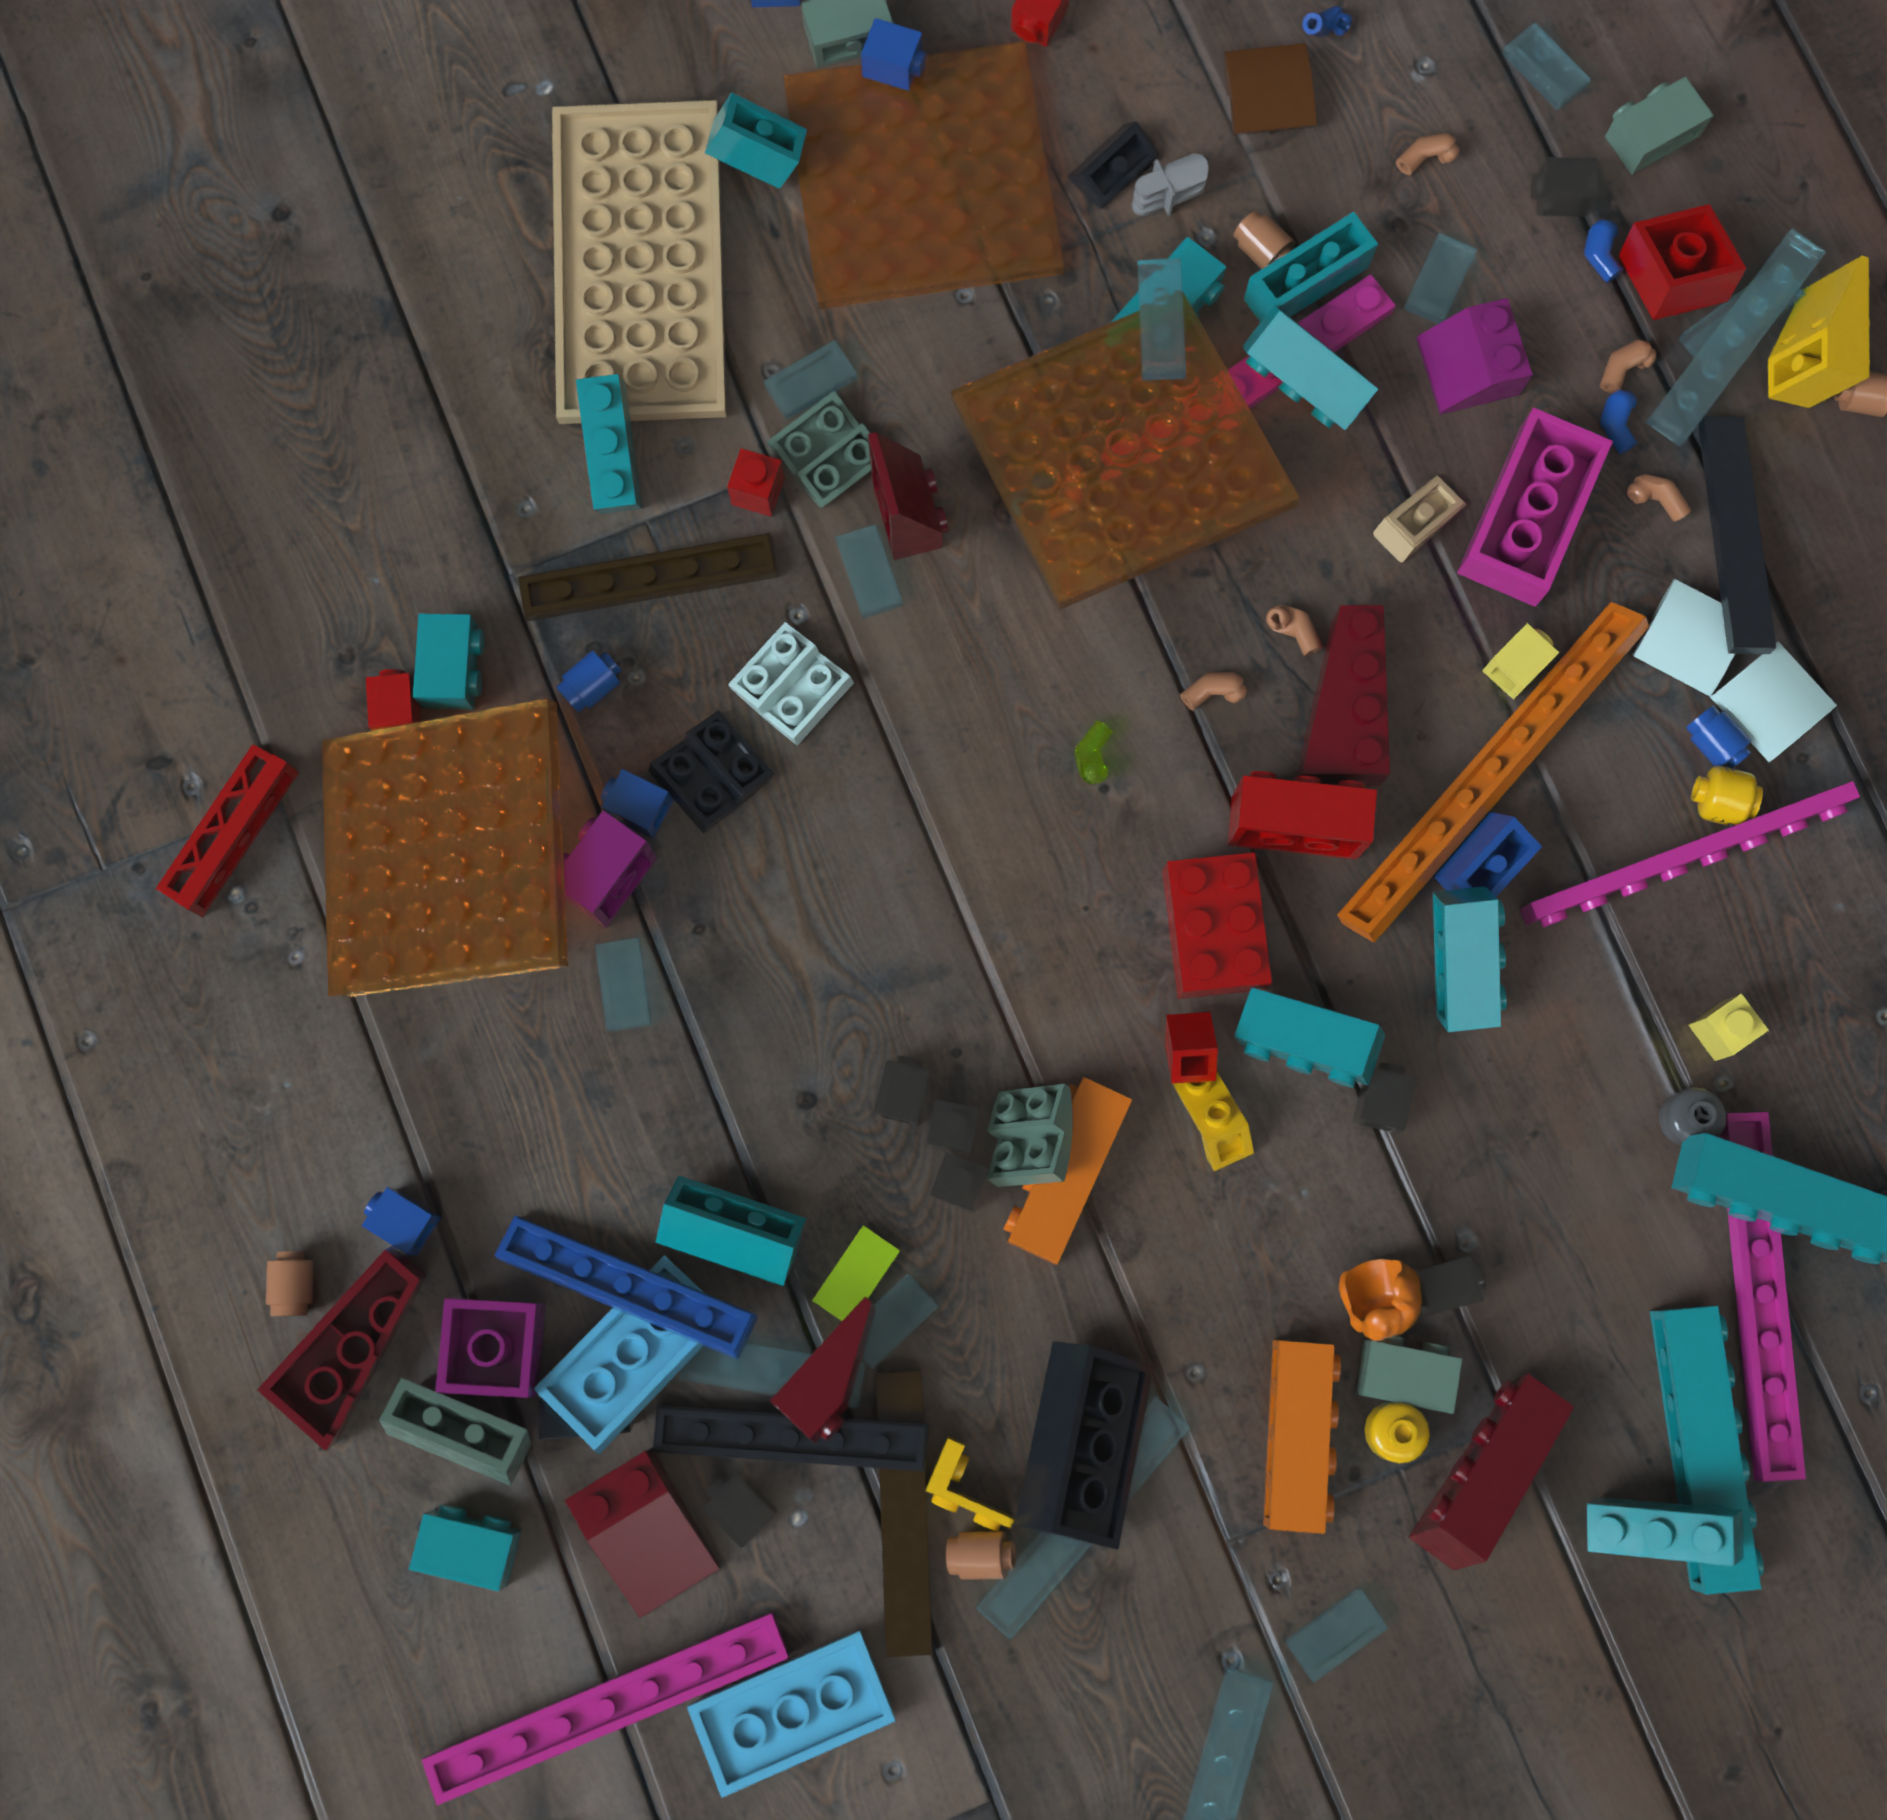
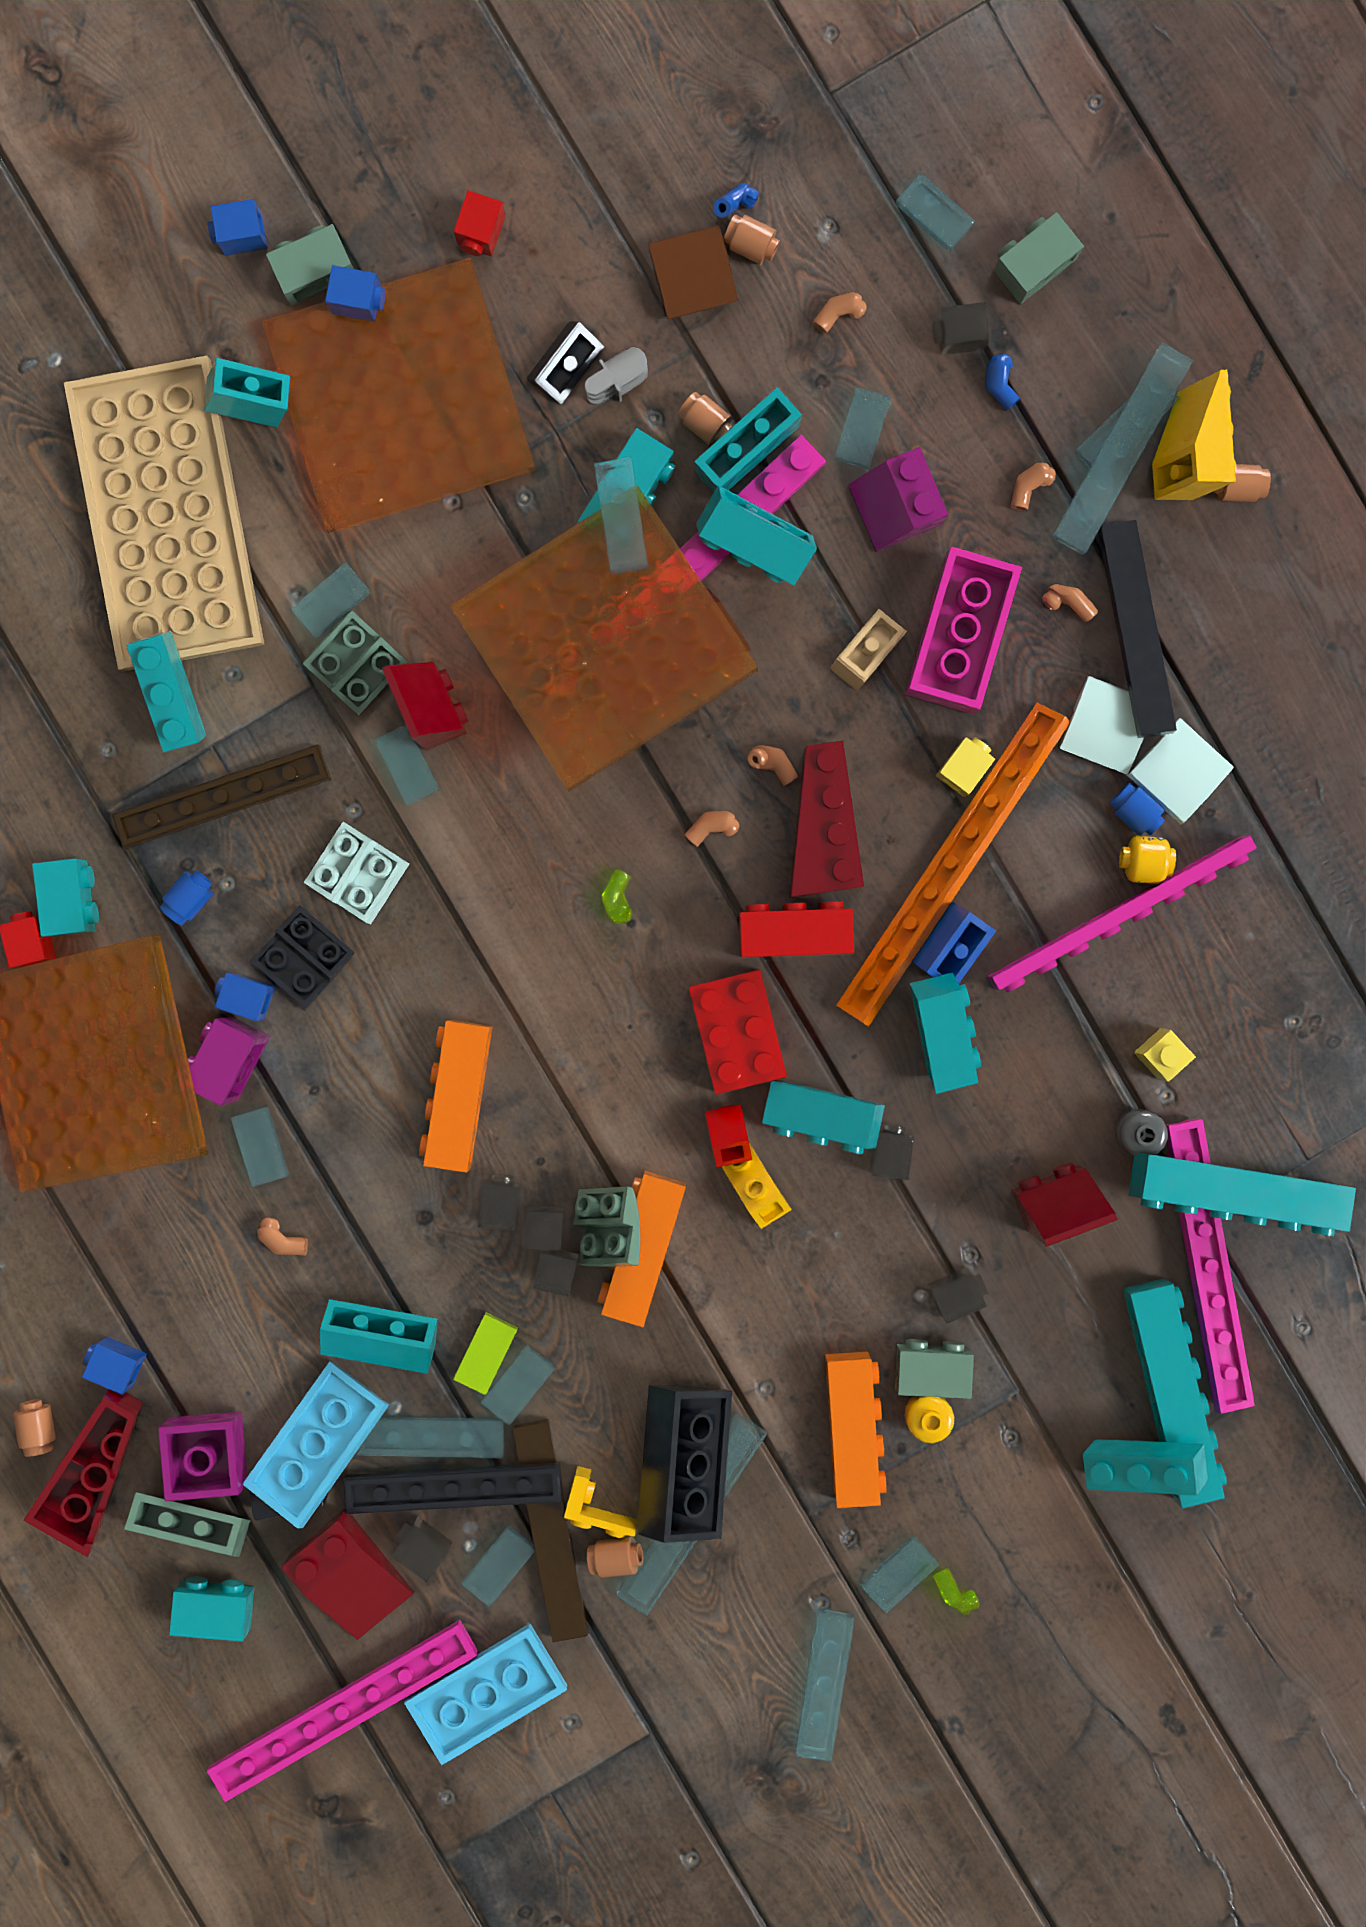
camera: 10 degrees left, 10 degrees up
(624, 1101) = (277, 1242): none -> nougat arm
(627, 1287) = (302, 1393): blue tile -> none
(756, 482) = (298, 703): red brick -> none
(824, 1383) = (472, 1447): dark red slope -> none
(831, 1548) = (498, 1565): none -> clear light blue tile
(870, 954) = (457, 1095): none -> orange brick
(1339, 63) = (751, 239): none -> nougat brick
(1381, 1297) = (905, 1314): orange hair -> none
(1399, 1669) = (952, 1596): none -> clear neon green arm
(1492, 1474) = (1008, 1437): dark red wedge -> none
(1588, 1183) = (1062, 1204): none -> dark red slope
(1615, 417) = (1025, 536): blue arm -> none
(1681, 262) = (1068, 388): red brick -> none

